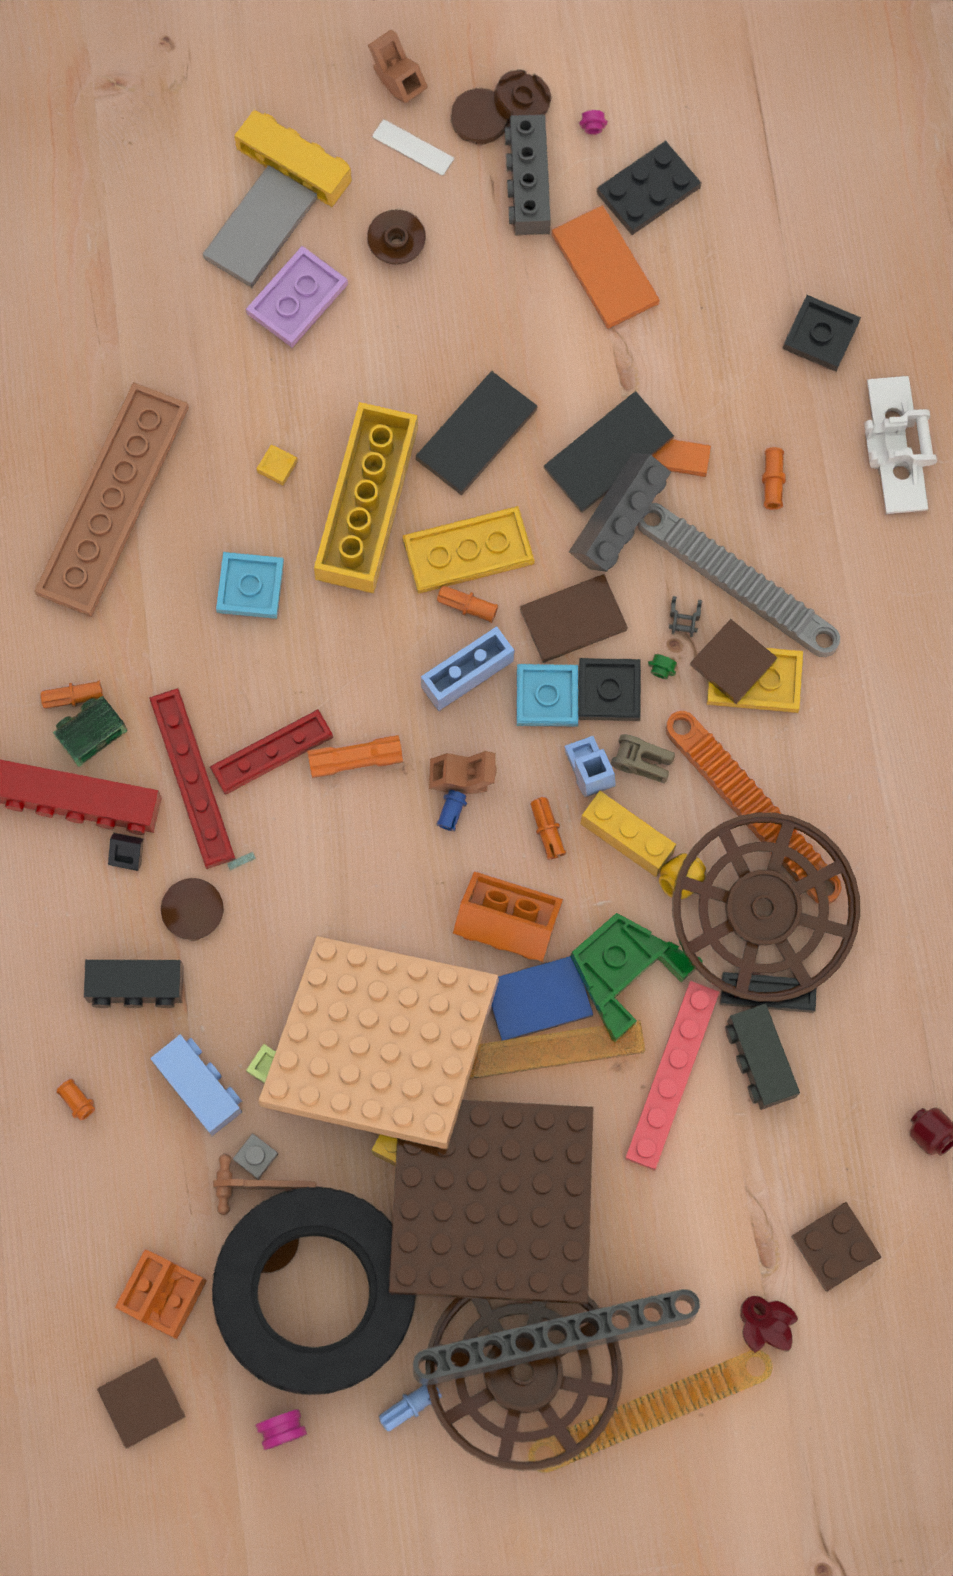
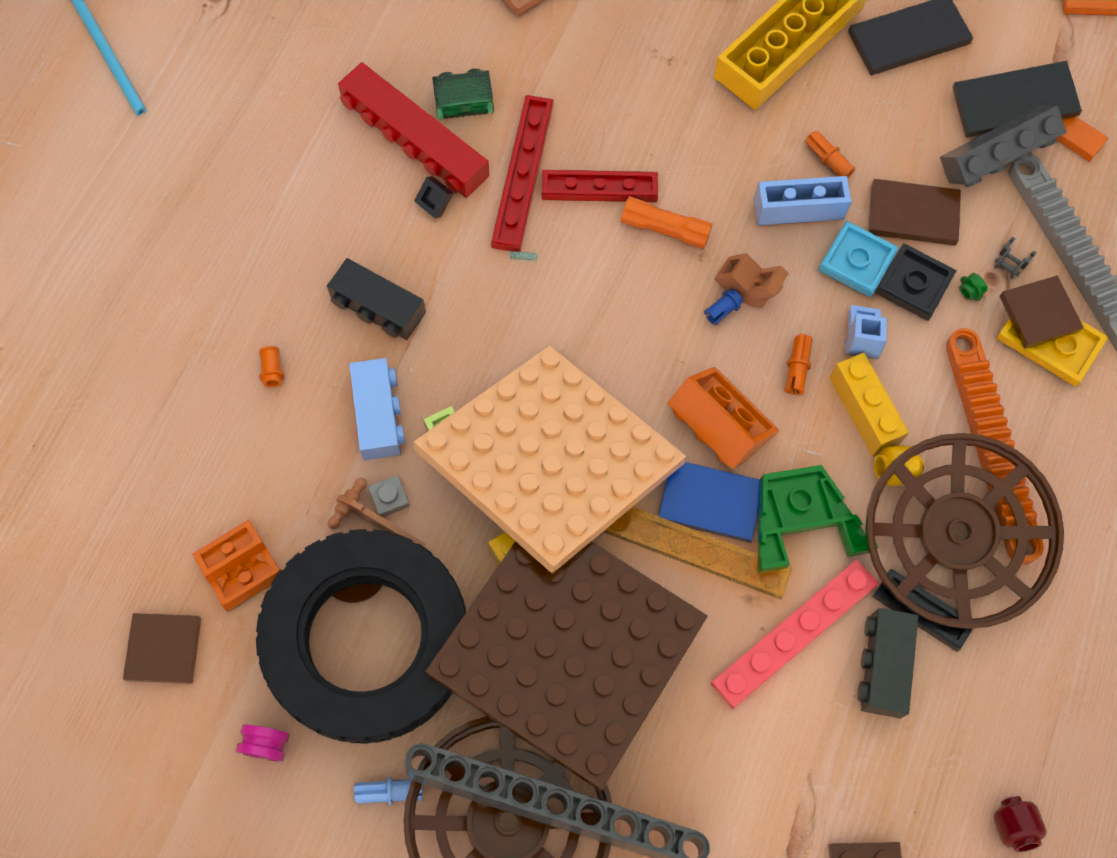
camera: 30 degrees right, 5 degrees down
(71, 694) = (464, 61): orange axle -> none
(192, 909) = (460, 270): reddish brown dish -> none
(250, 585) = (657, 53): medium azure plate -> none
(468, 549) = (854, 117): yellow tile -> none
(634, 763) = (915, 351): dark tan piece -> none

